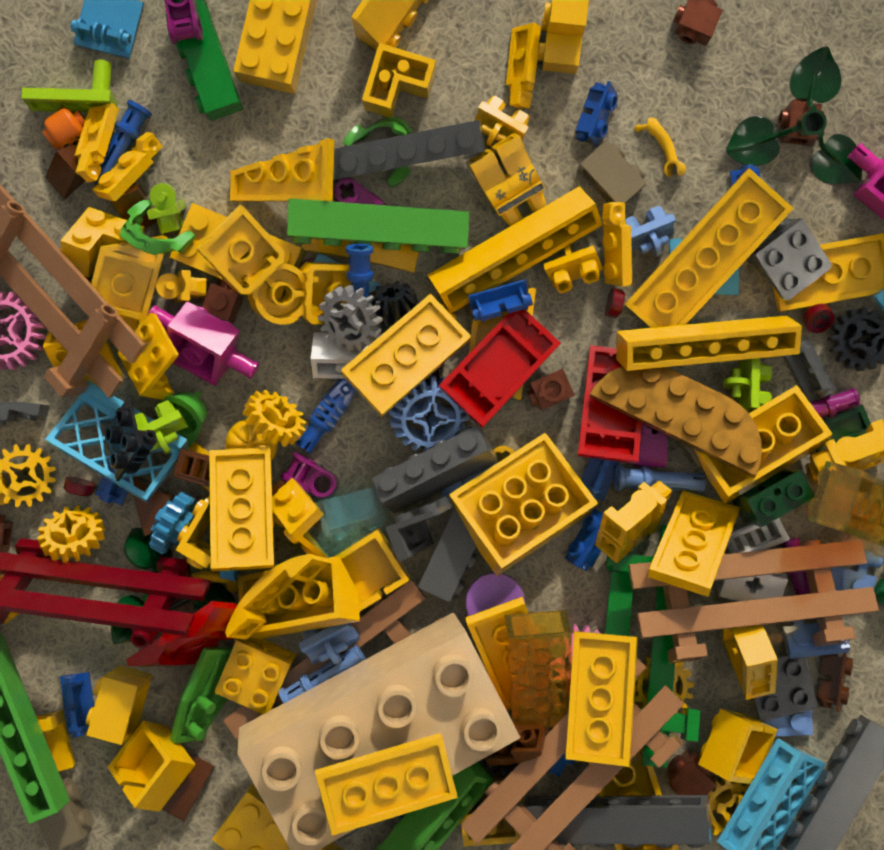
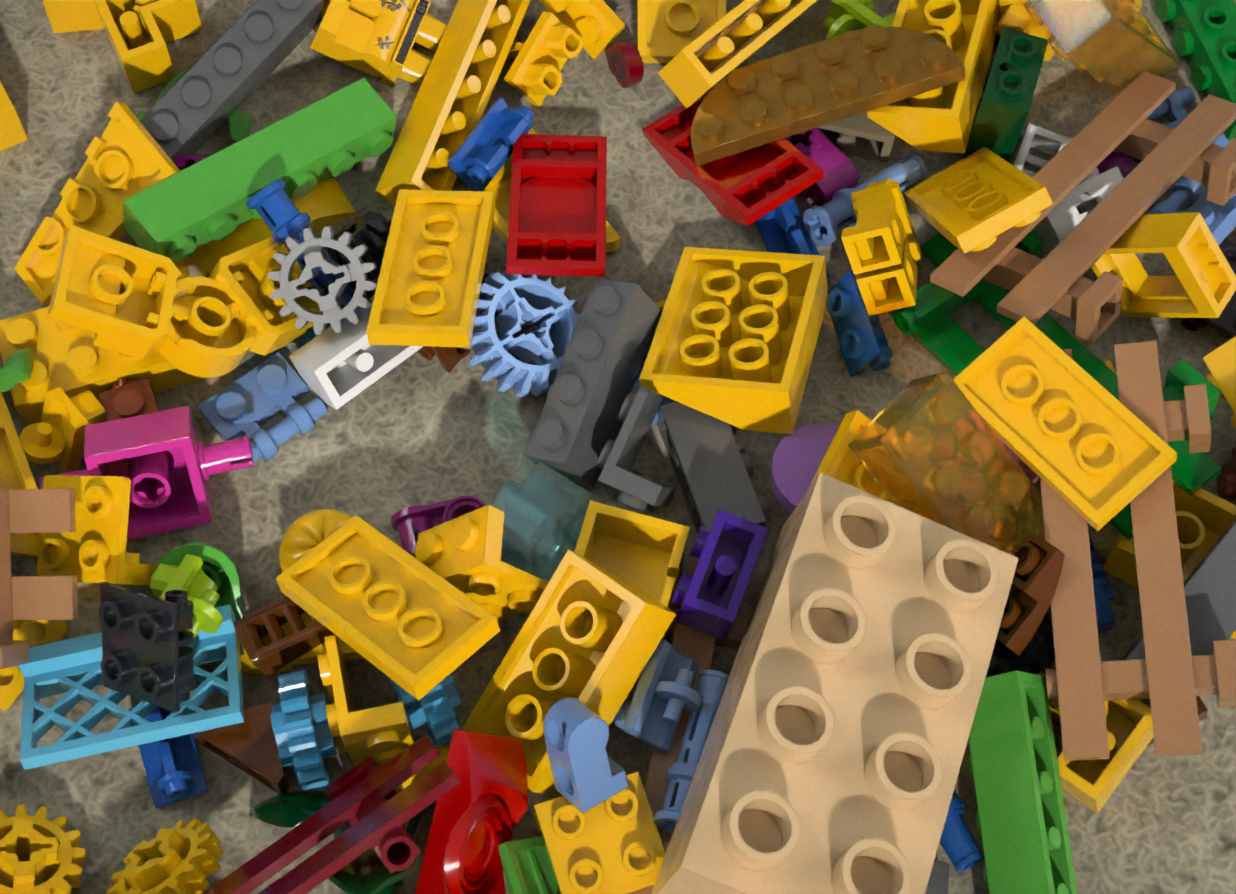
camera: 50 degrees left, 25 degrees down
(78, 486) = (121, 811): dark red tile -> none
(248, 614) = (516, 667): yellow slope -> none
(266, 645) = (578, 755): none -> medium blue leg
(274, 418) = (328, 487): yellow gear -> none
(293, 336) = (256, 399): none -> medium blue plate
(327, 414) = (393, 443): blue hinge -> none
(386, 784) = (914, 722): yellow plate -> none
(399, 616) = (721, 576): none -> dark purple brick
(550, 390) = (644, 198): copper brick -> none

